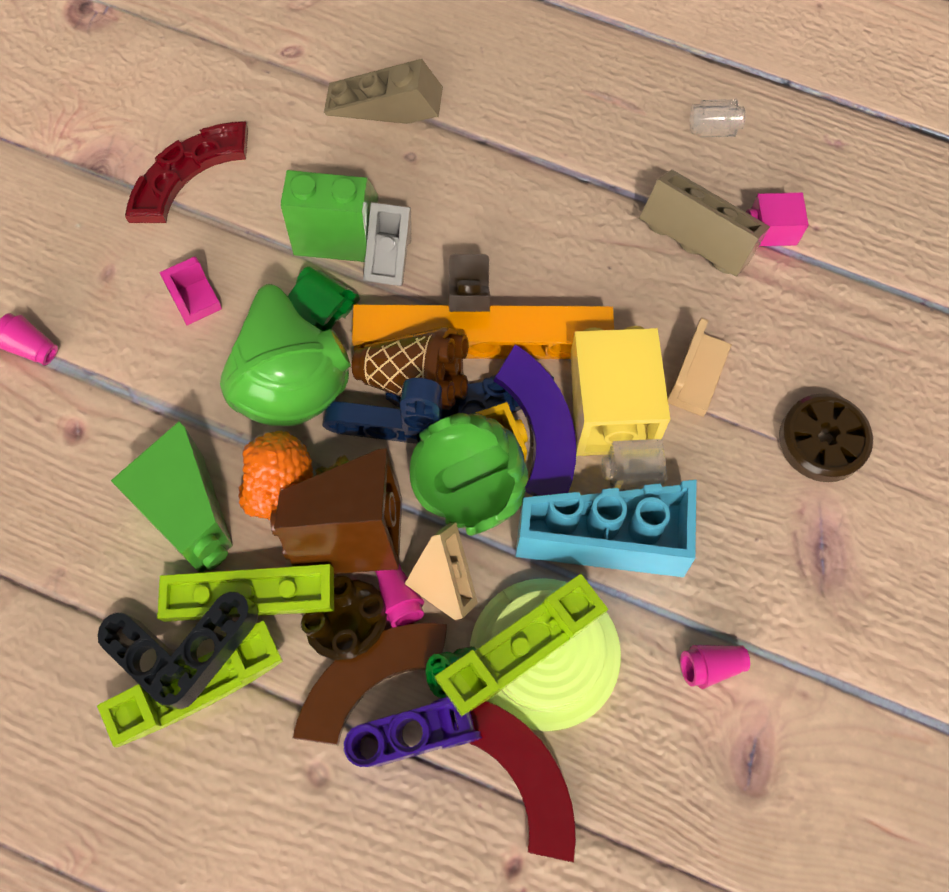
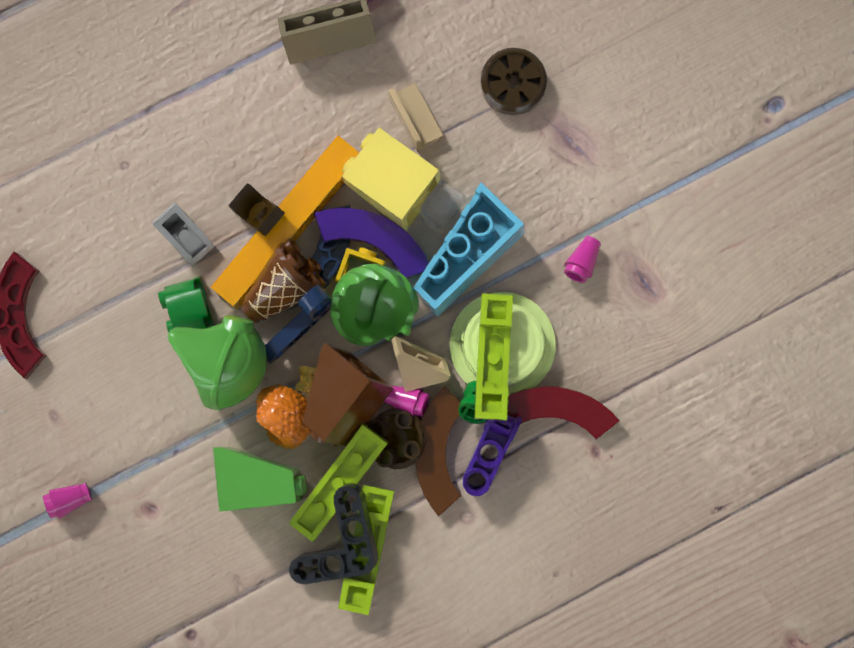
camera: 45 degrees left, 15 degrees up
(190, 290) = (115, 376): dark pink panel -> none
(327, 214) = (134, 252): bright green slope -> none
(390, 94) = (68, 147): dark tan slope -> none

